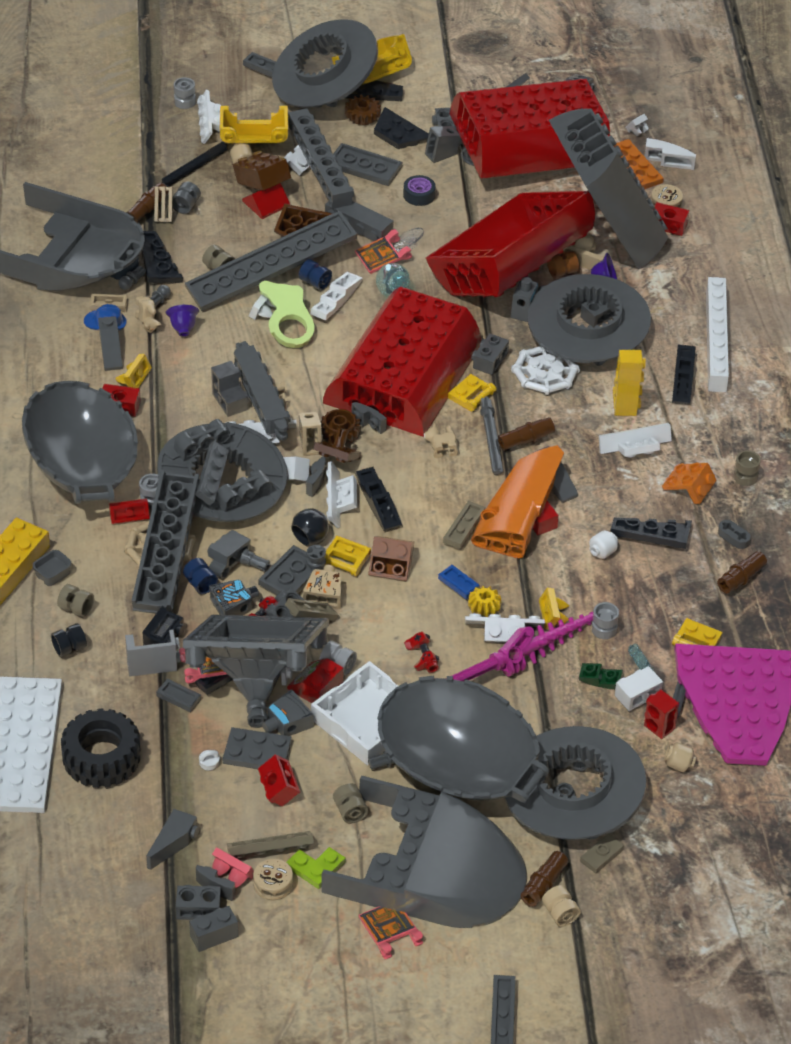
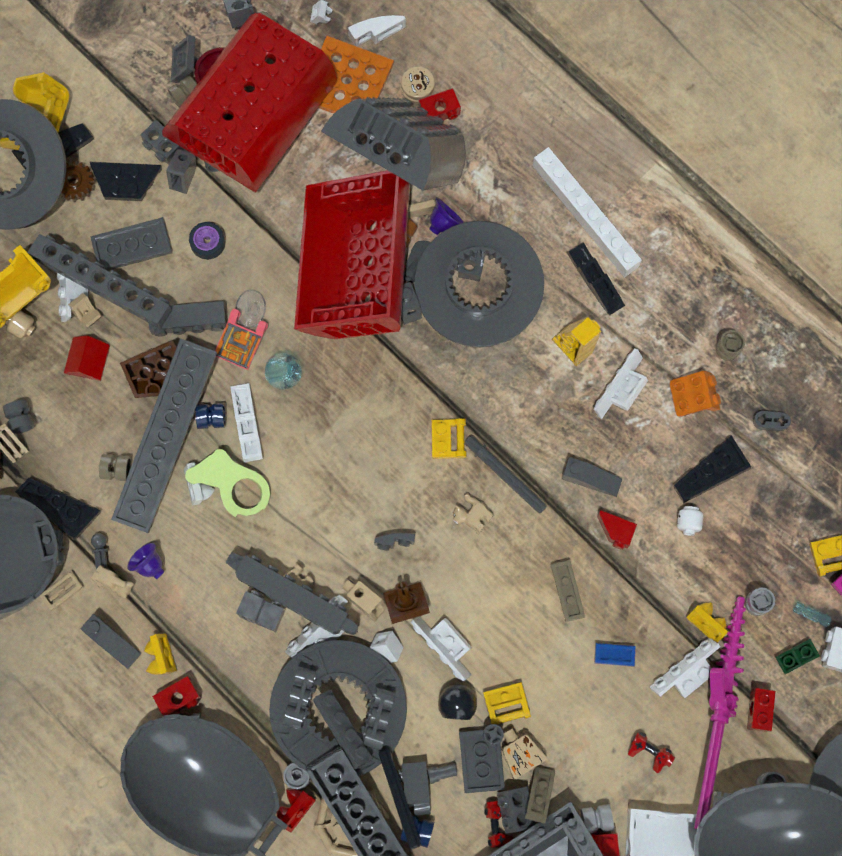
camera: 40 degrees left, 30 degrees up
(106, 310) = (75, 612): blue piece -> none
(207, 540) = (399, 799): none -> black axle
(232, 597) = (462, 830): torso -> none
(261, 170) = (61, 336): reddish brown brick -> none
(295, 169) = (84, 310): none -> tan bracket
(317, 476) = (408, 635): dark grey slope -> none
(339, 419) = (380, 581): reddish brown gear -> none
(378, 498) = (478, 621): black slope -> none
(391, 557) = (544, 676): dark orange slope -> none
(421, 373) = (351, 477): red slope -> none
(484, 601) = (659, 665): yellow gear -> none
(490, 354) = (429, 385): dark grey brick -> none
(511, 514) = (597, 536): orange panel -> none
(527, 433) = (533, 451): reddish brown piece -> none
(535, 682) = (761, 710): none -> red brick
(550, 380) = (485, 374): white plate -> none
(741, 573) = (814, 460): reddish brown piece -> none

